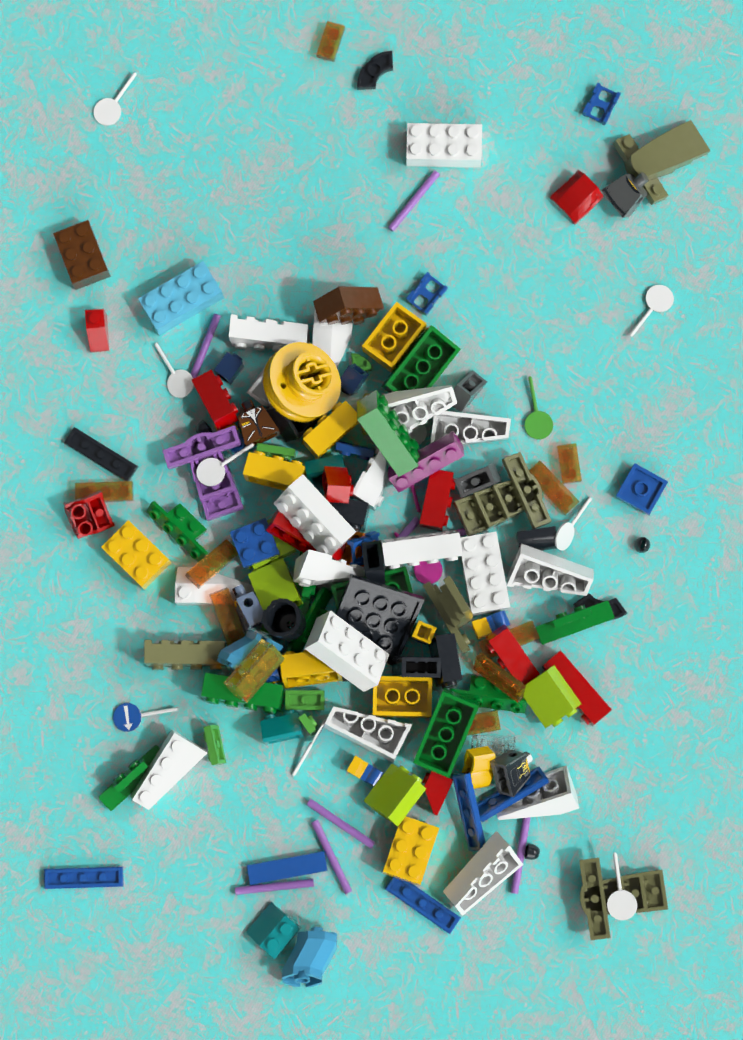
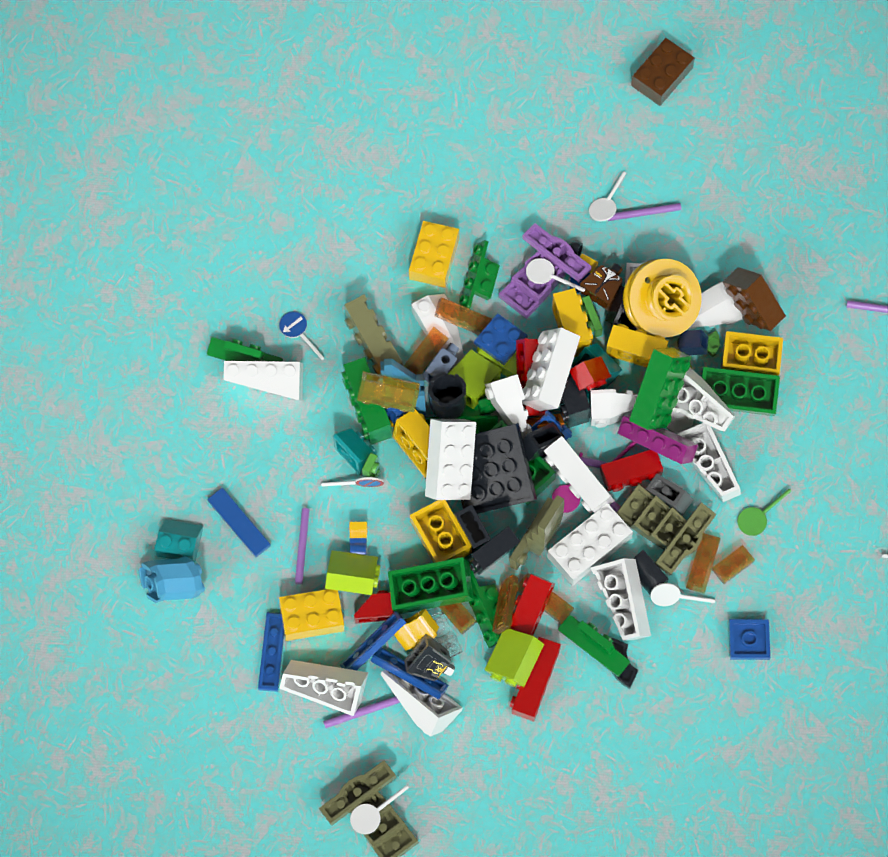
camera: 55 degrees right, 10 degrees down
(83, 877) = (138, 364): blue tile -> none
(88, 515) = (445, 198): red slope -> none
(97, 330) = (606, 119): slope -> none
(101, 454) = (503, 182): black tile -> none
(108, 110) = (801, 25): white piece -> none
(112, 491) = (472, 200): clear orange plate -> none
(181, 298) = (675, 168): medium azure brick -> none
(215, 747) = (309, 405): bright green plate -> none
(216, 399) = (605, 241): red brick -> none
(229, 367) = (640, 239): dark blue brick -> none
(265, 334) = (686, 250): white wedge -> none
(274, 886) = (217, 521): medium lavender bar -> none
(305, 700) = (391, 457): bright green plate -> none
(331, 857) = (269, 553): medium lavender bar -> none
(348, 448) = (630, 372): blue plate -> none
(368, 731) = (396, 533): white wedge -> none
(421, 290) = (809, 358): blue piece -> none
(423, 633) = (506, 518): yellow leg -> none
(468, 389) = (743, 442): dark grey slope -> none
(489, 624) = (547, 571): leg -> none
(531, 852) = (369, 720): black hinge -> none
(637, 545) = (701, 671): black hinge -> none

